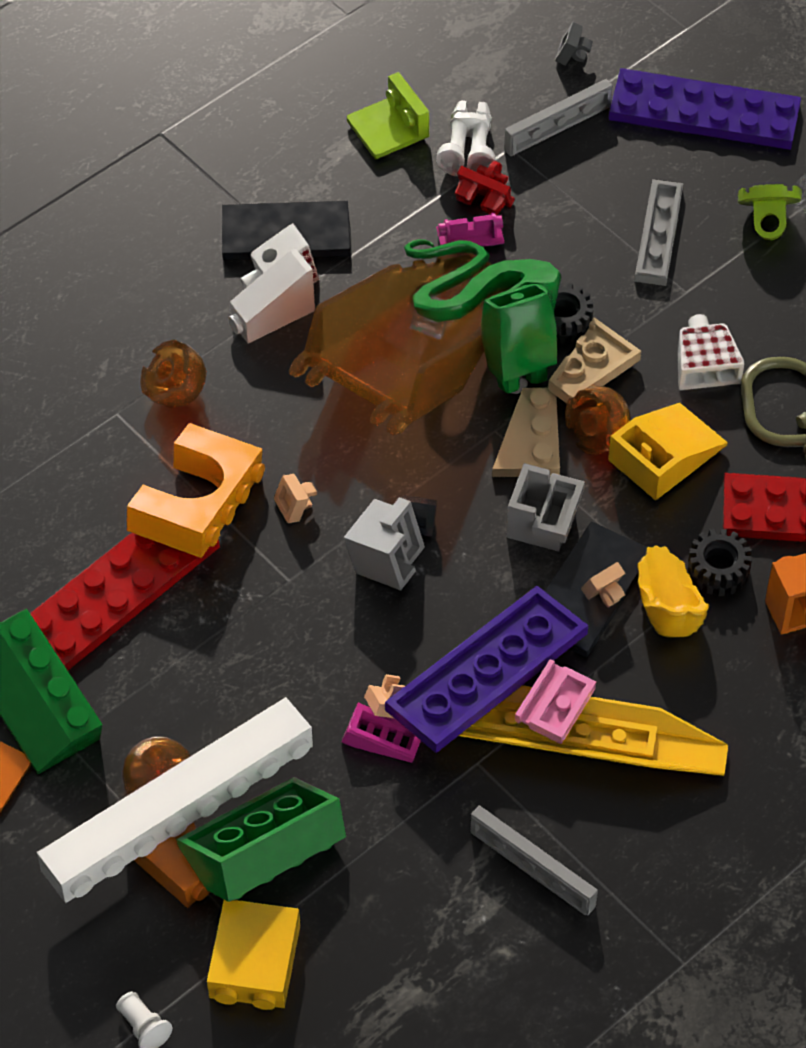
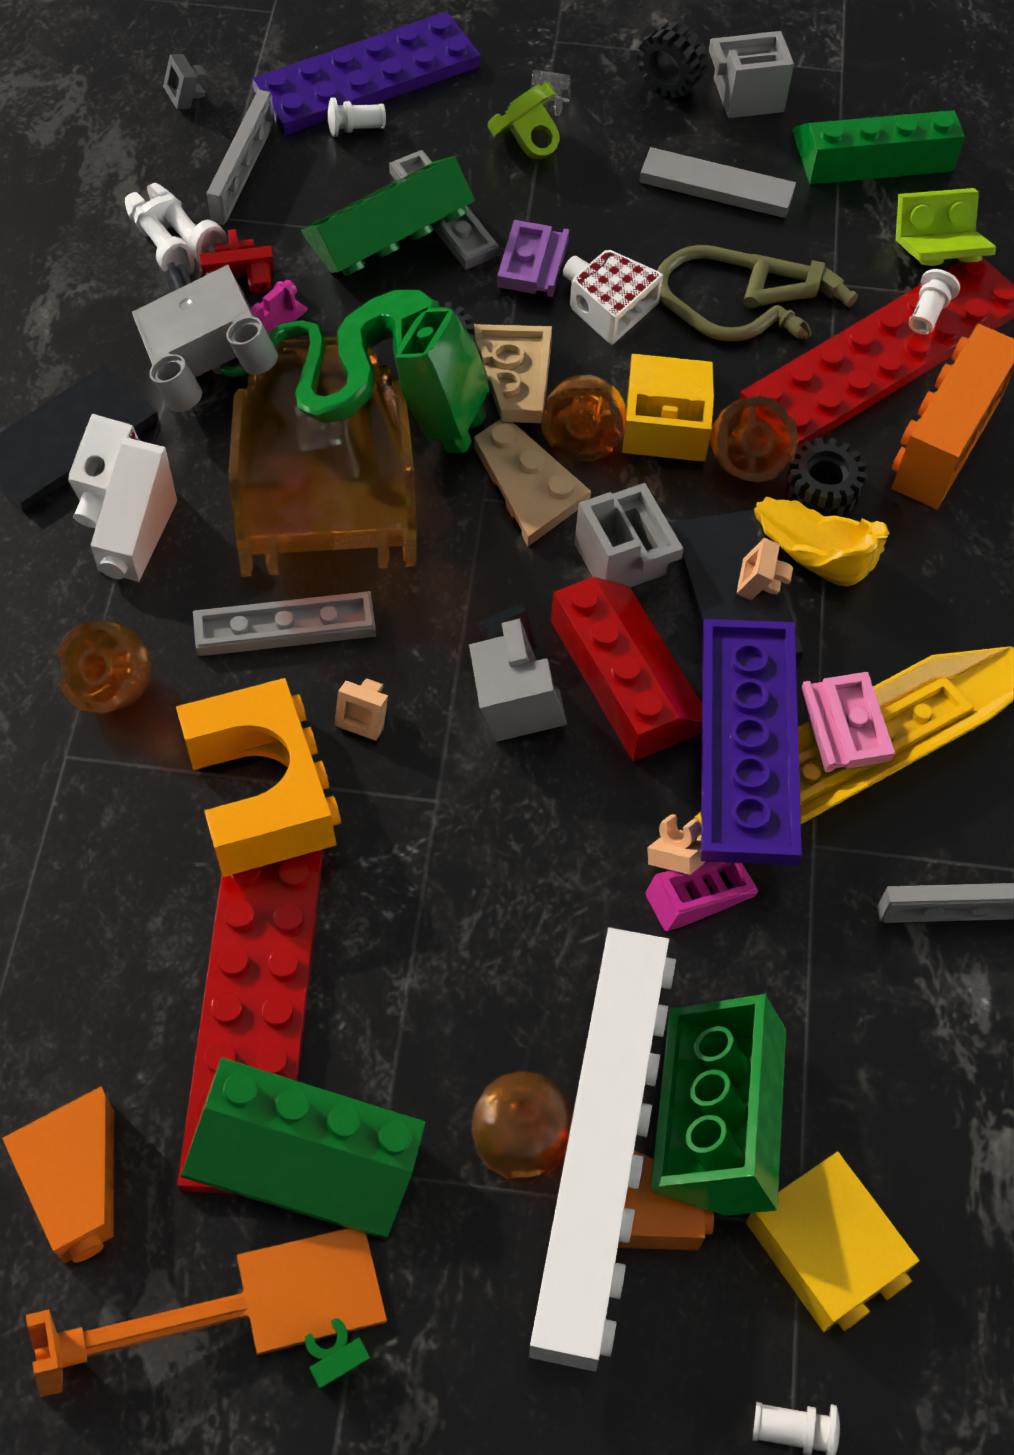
camera: 45 degrees left, 5 degrees up
(302, 422) = (284, 623): none -> light grey tile
(393, 121) = (75, 254): lime bracket -> none
(407, 213) = (198, 331): none -> light grey piece
(472, 577) = (626, 666): none -> red slope
(608, 213) = (390, 215): none -> green slope
(660, 134) = (354, 116): none -> white pin
(671, 508) = (753, 439): none -> clear orange cylinder
(680, 299) = (532, 258): none -> medium lavender plate

